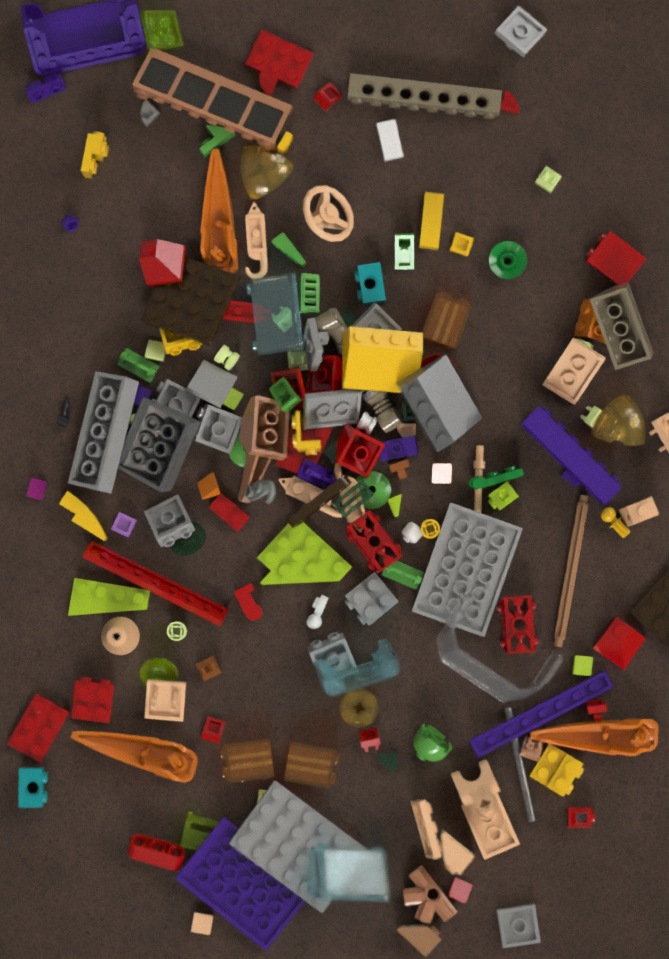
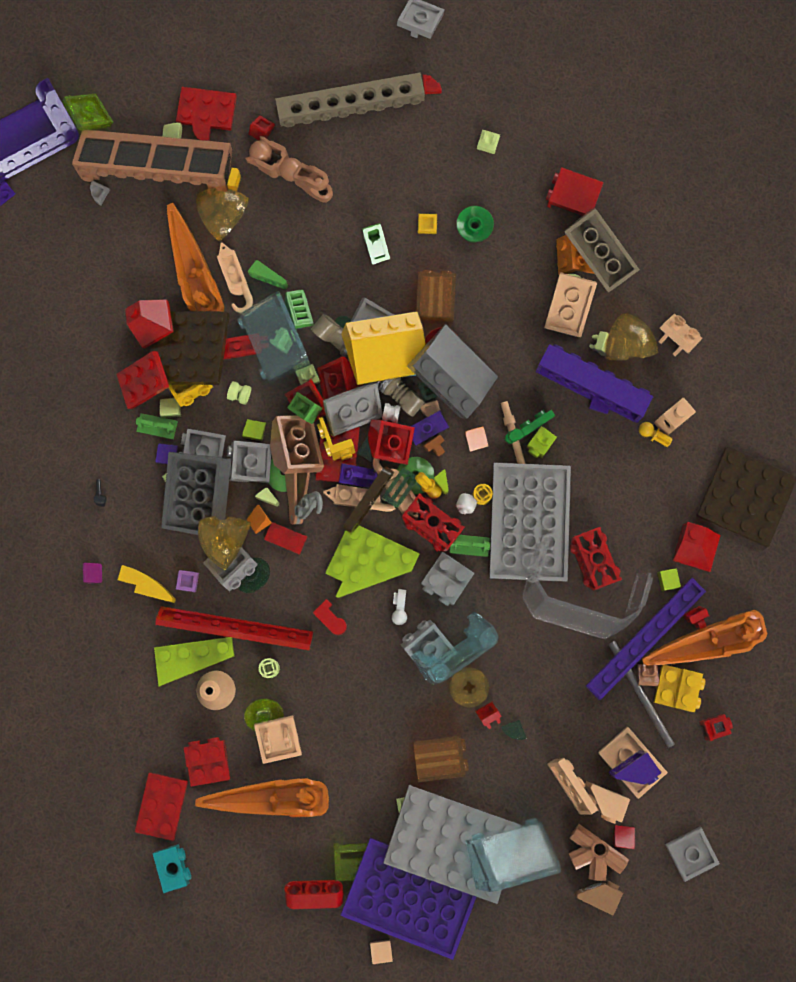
camera: 15 degrees left, 5 degrees down
(73, 225) = (58, 313): dark purple hinge -> none
(95, 149) = (56, 241): yellow plate -> none
(103, 432) = (140, 498): light grey brick -> none
(138, 318) = (142, 380): none -> red plate
(170, 496) = (222, 538): none -> clear yellow brick
(208, 668) = (311, 695): dark orange tile -> none
(211, 383) = (231, 421): light grey tile -> none
(213, 730) = (333, 754): red slope -> none
(219, 136) = (171, 193): bright green slope -> none
(224, 467) = (266, 496): none -> yellowish green slope
(238, 73) = (172, 130): none -> yellowish green slope
(247, 760) = (376, 773): clear orange brick -> none
(313, 343) = (317, 352): light grey hinge -> none
(327, 215) = (292, 232): light nougat piece -> none
(342, 148) = (289, 168): none -> nougat piece
(374, 273) = (353, 273): teal brick -> none
(381, 505) = (428, 485): none -> yellow axle
(389, 140) = (331, 150): white tile -> none
(430, 744) = (549, 701): bright green cylinder -> none
(431, 221) = (392, 210): yellow slope -> none
(478, 791) = (611, 733): light nougat piece -> none
(490, 832) = (637, 769): none -> dark purple slope
(571, 570) = (629, 495): medium nougat piece -> none

